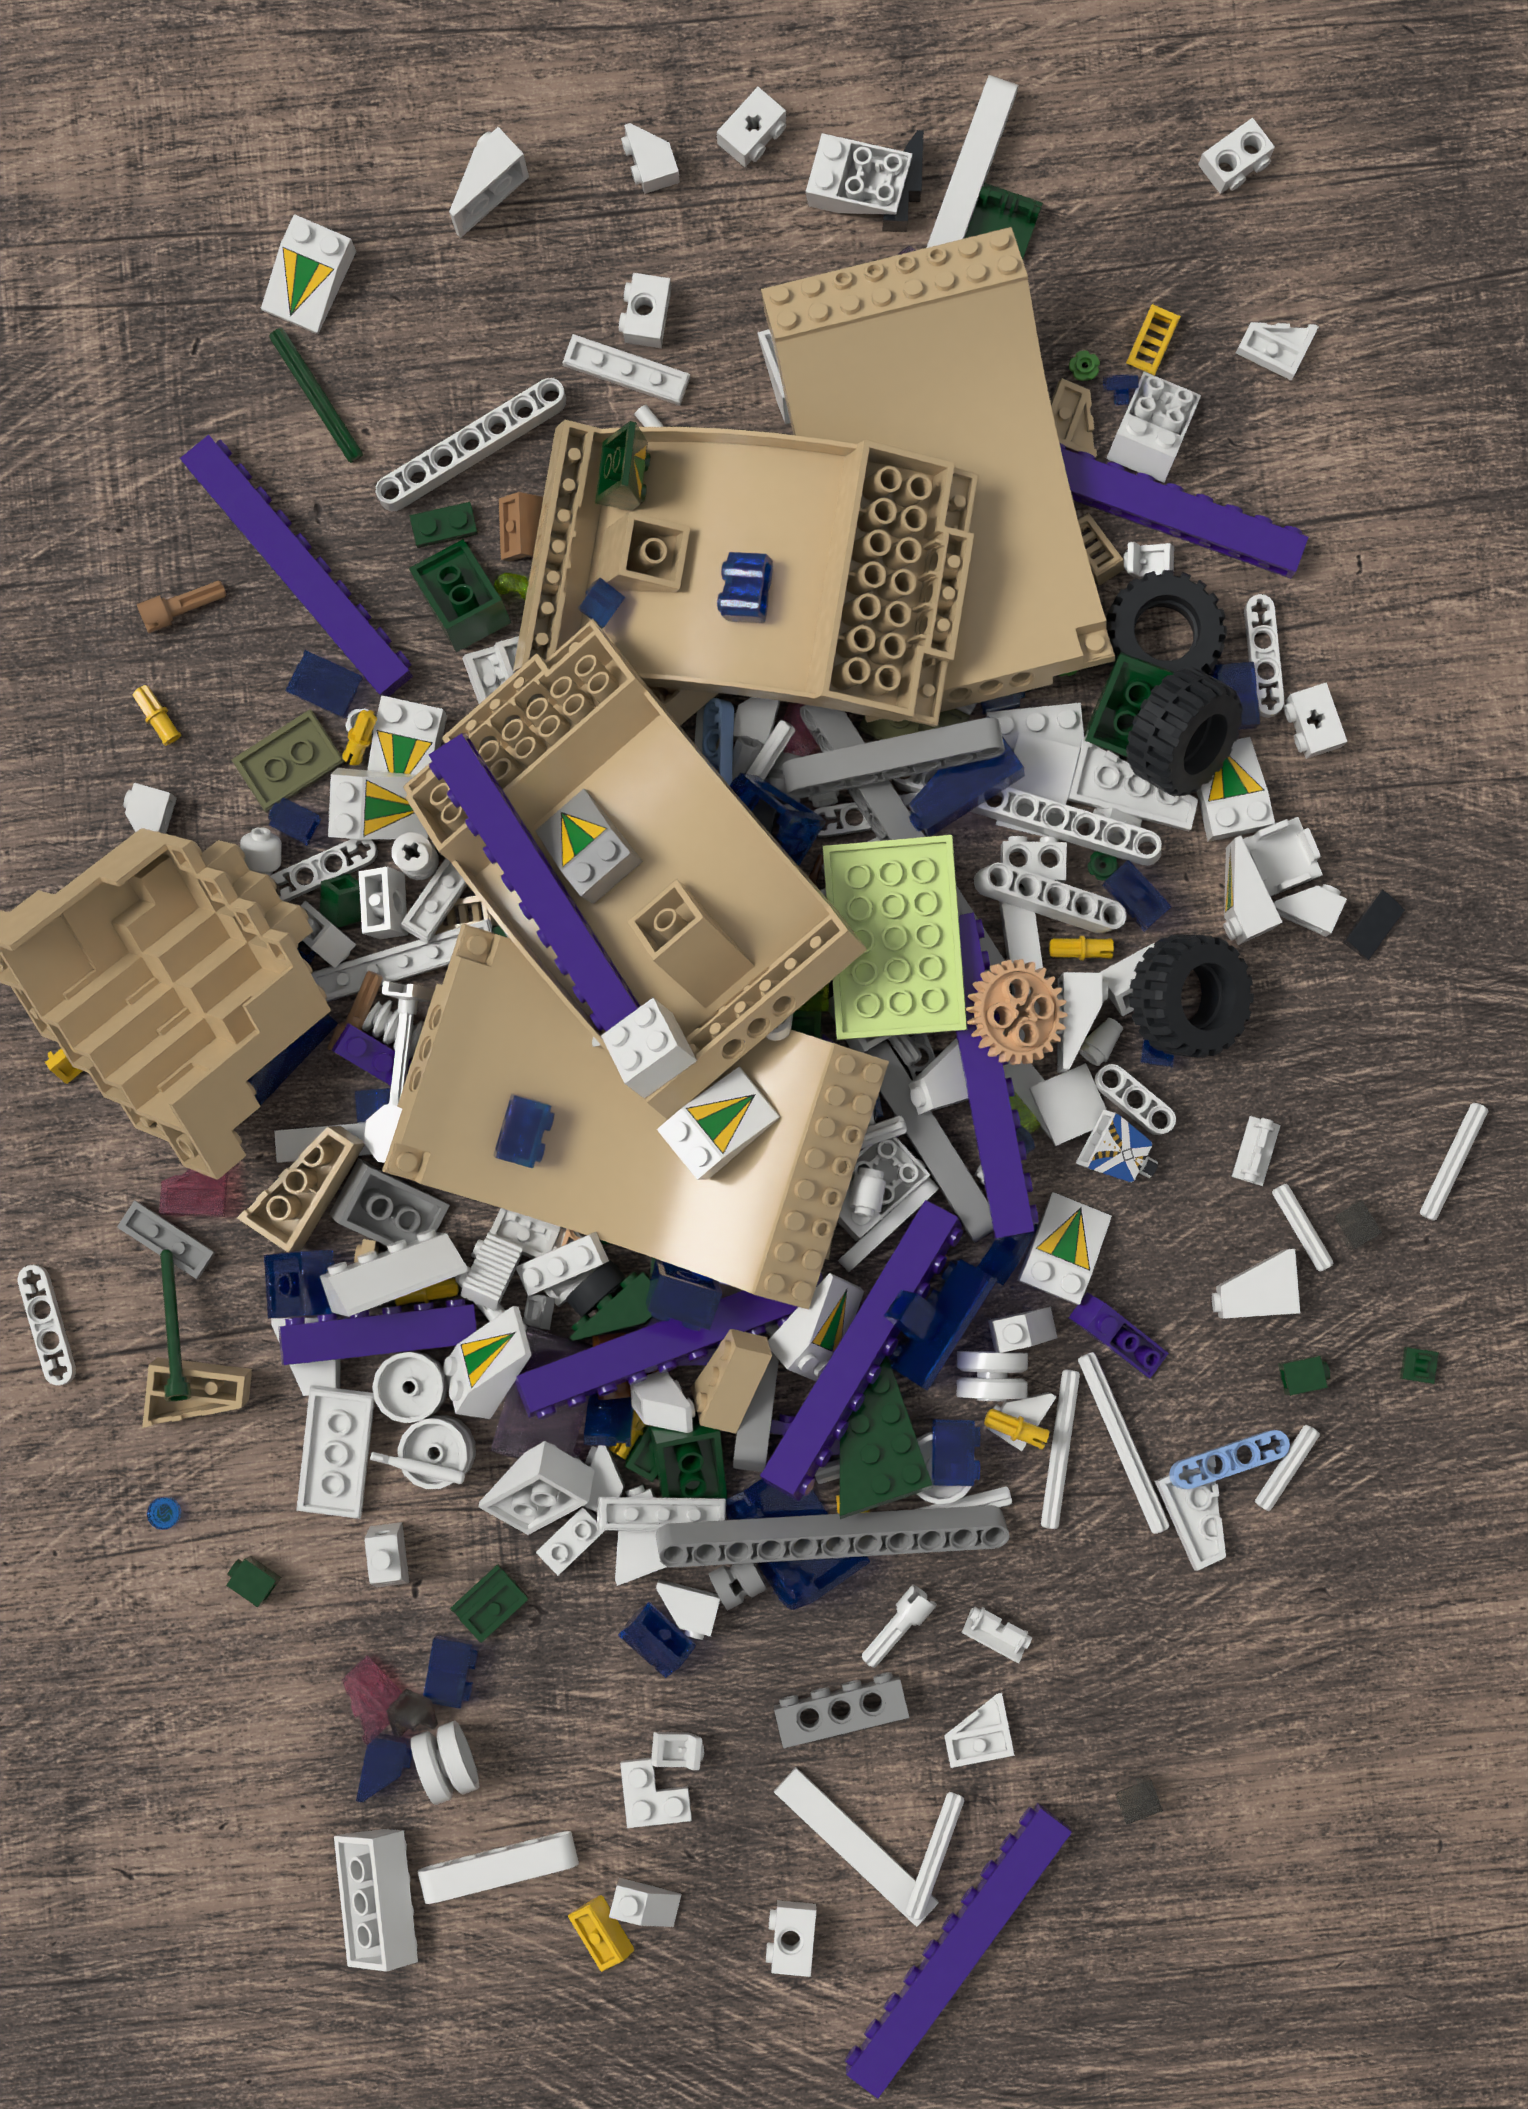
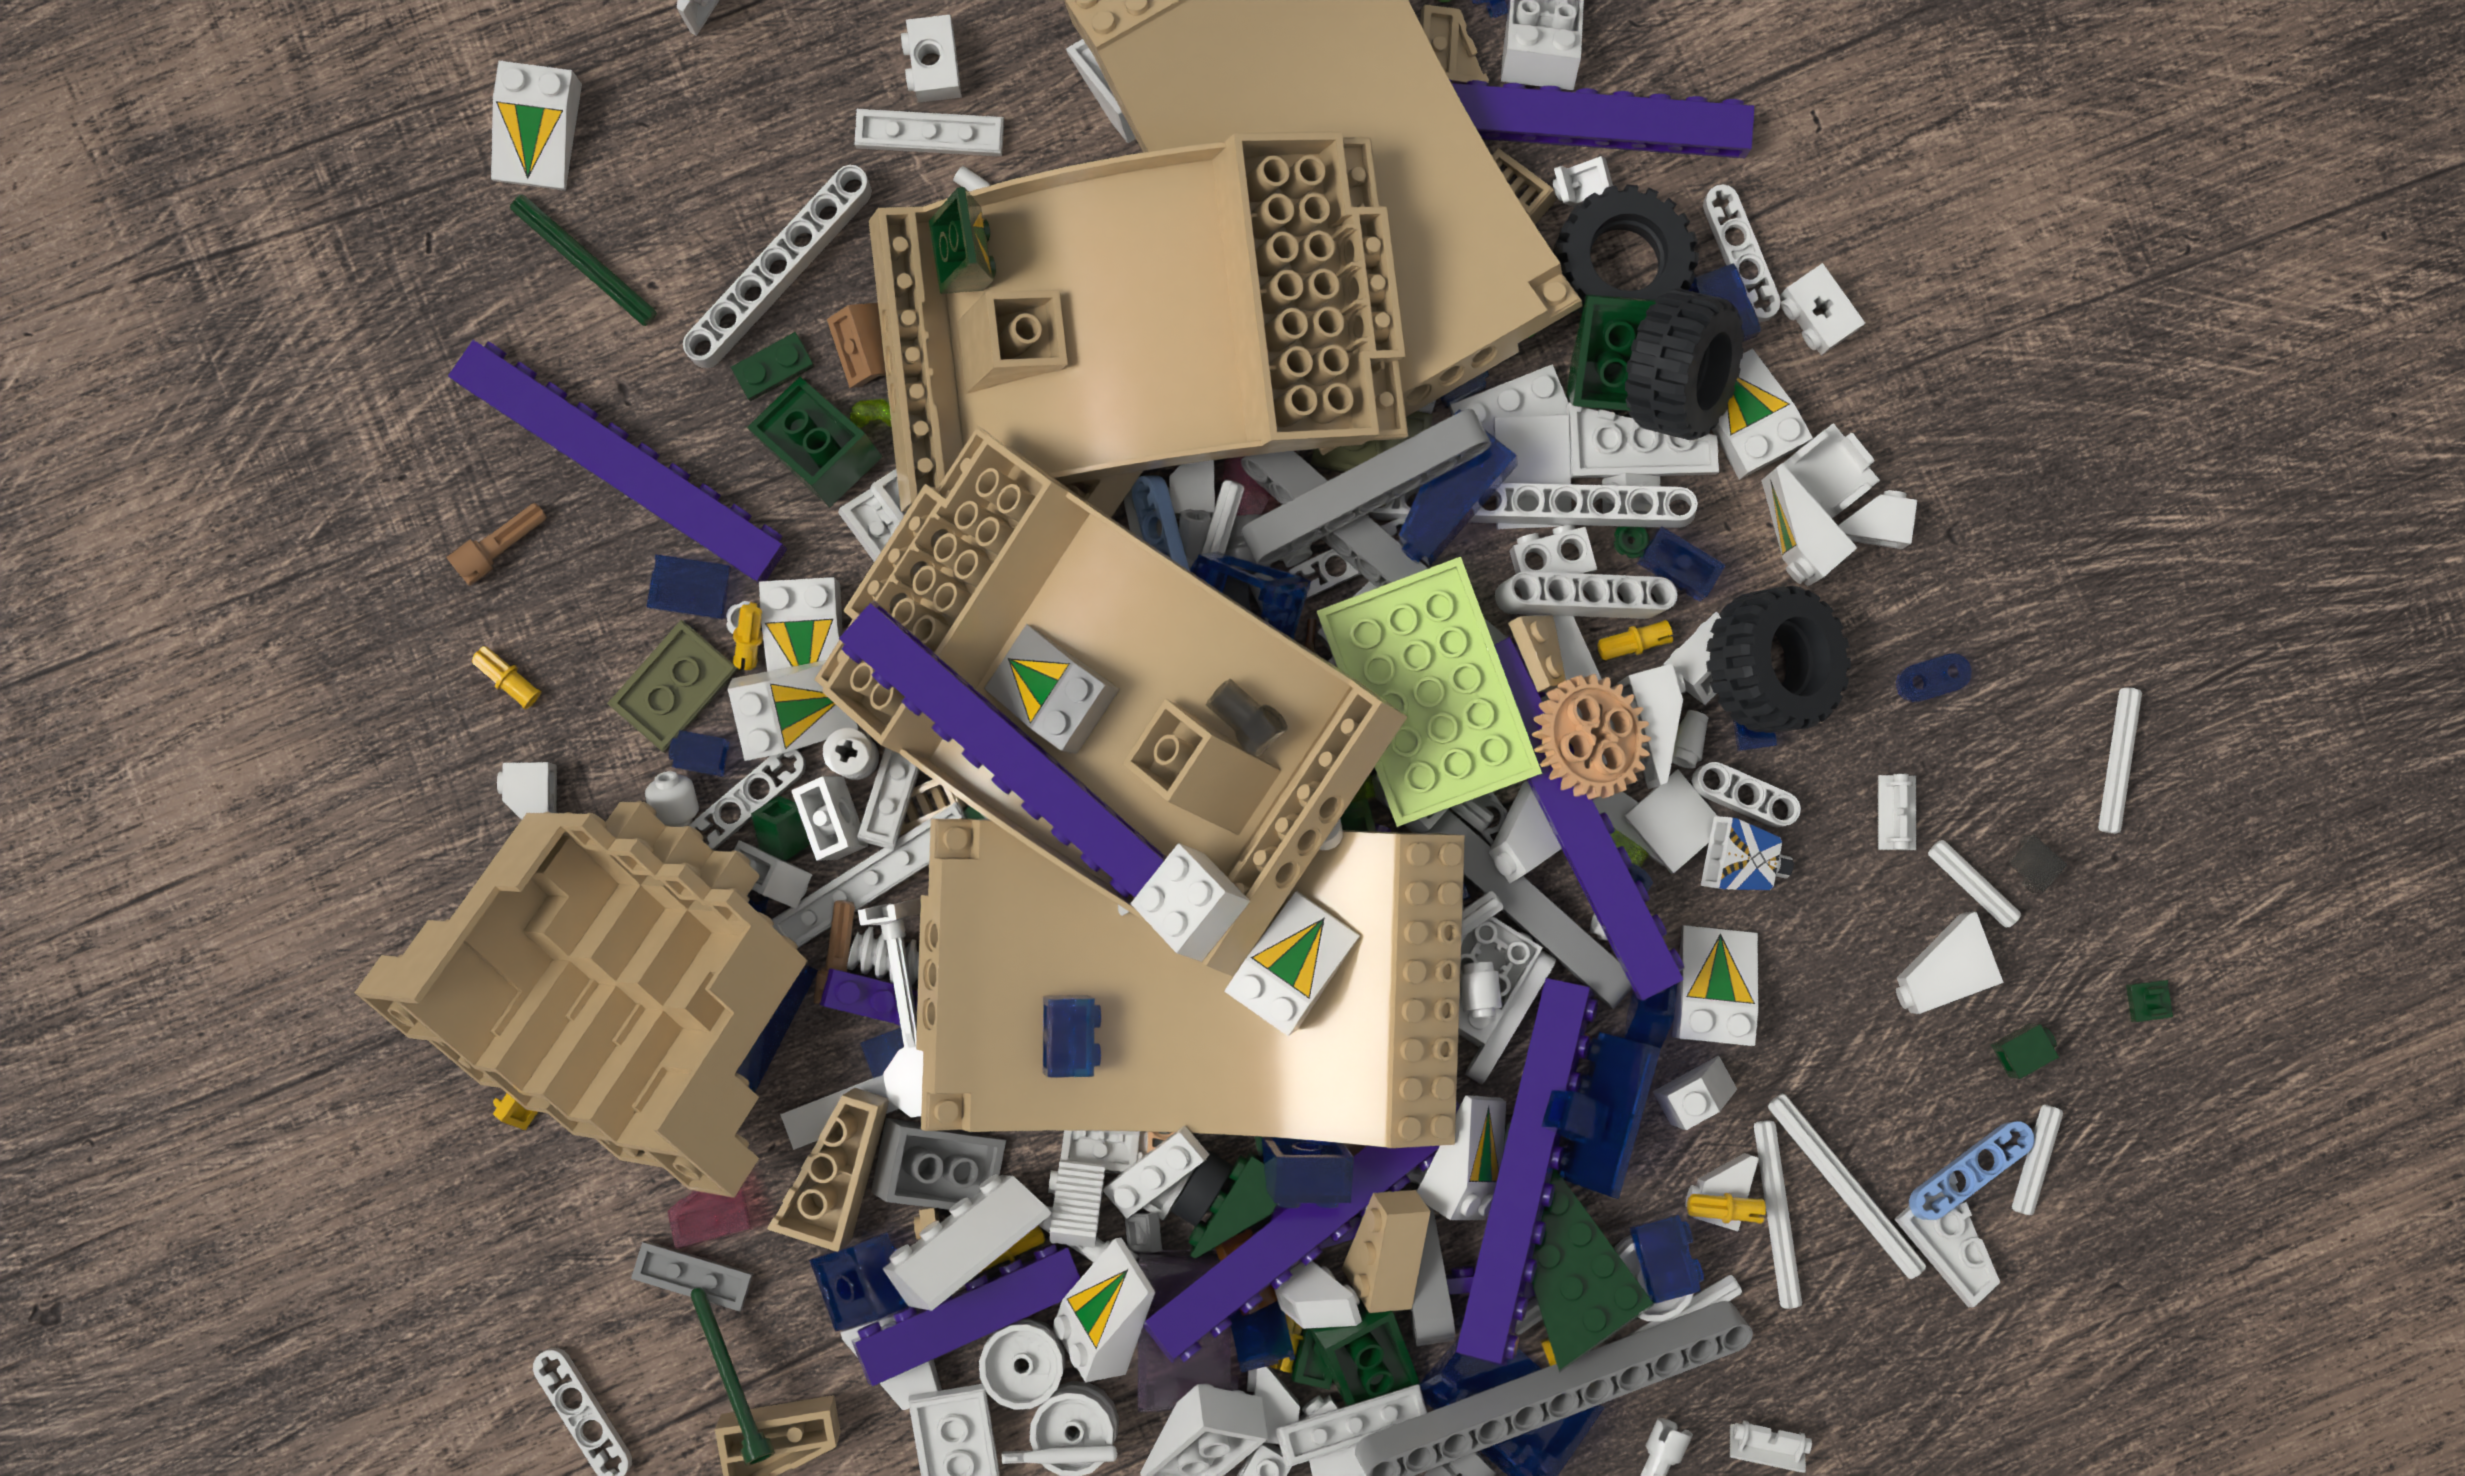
camera: 30 degrees left, 0 degrees up
(601, 602) = (980, 404): clear blue panel -> none
(742, 920) = (1253, 724): none -> clear smoke piece
(745, 587) = (1143, 341): clear blue brick -> none
(992, 1375) = (1681, 1160): white wheel -> none
(997, 930) = (1540, 650): none -> tan wing
(1118, 1335) = (1805, 1066): dark purple slope -> none
(1320, 1049) = (1934, 676): none -> clear blue plate
(1374, 925) = (1952, 520): black slope -> none

